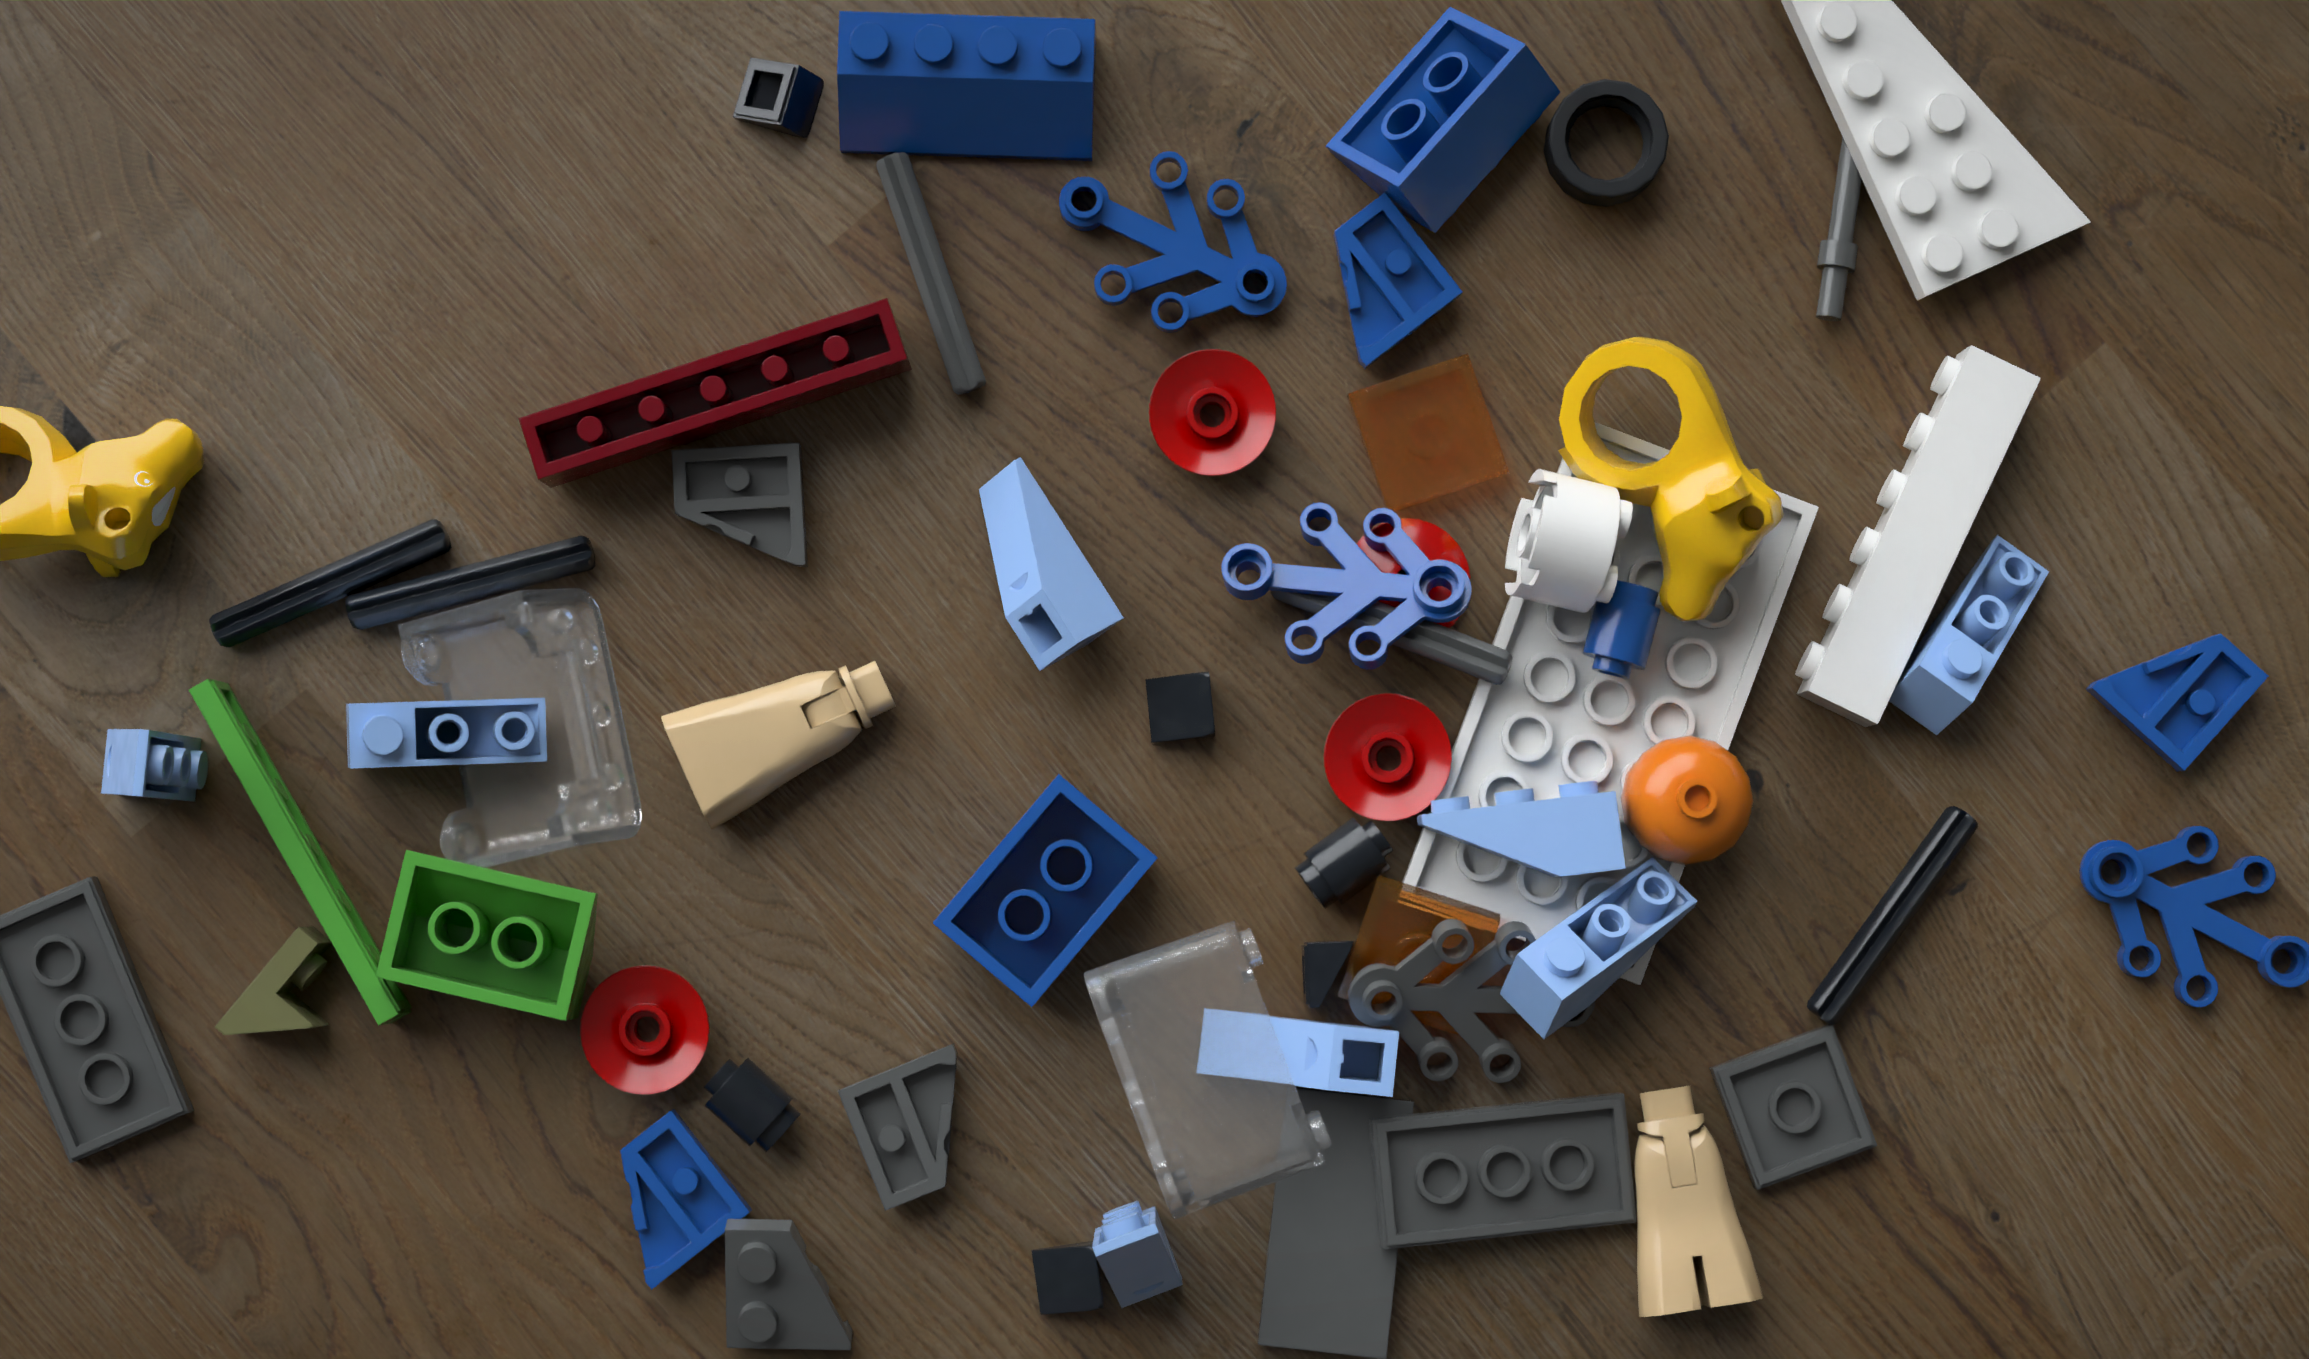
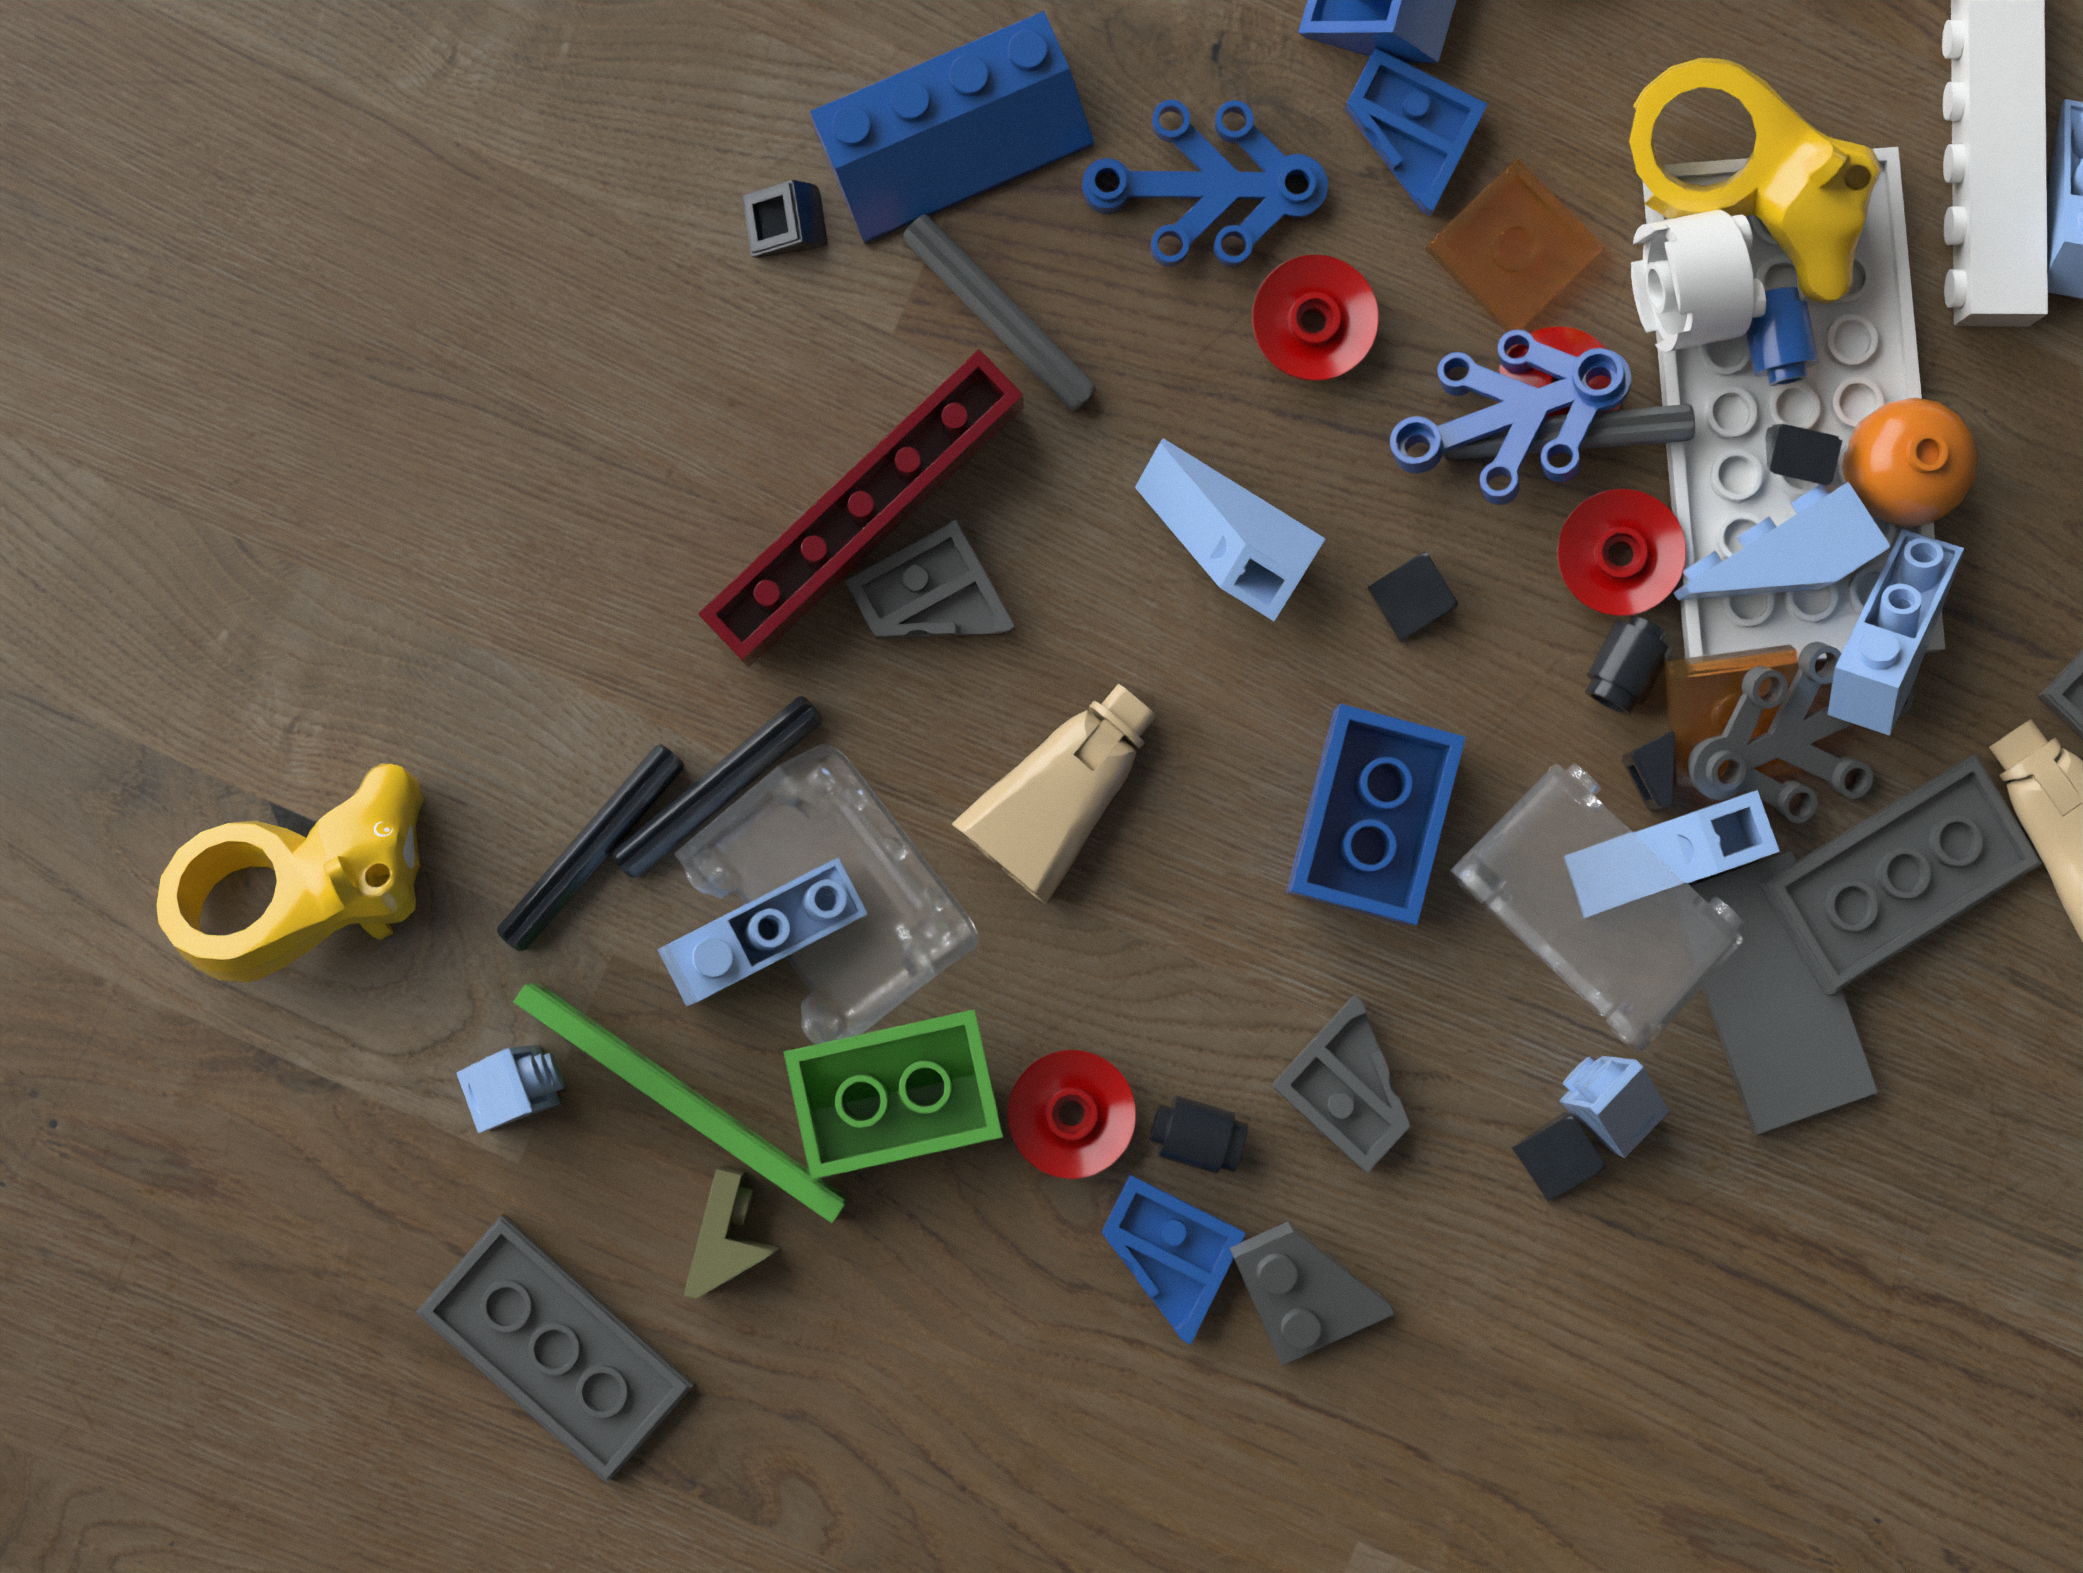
camera: 25 degrees left, 0 degrees up
(1588, 746) = (1802, 453): none -> black slope

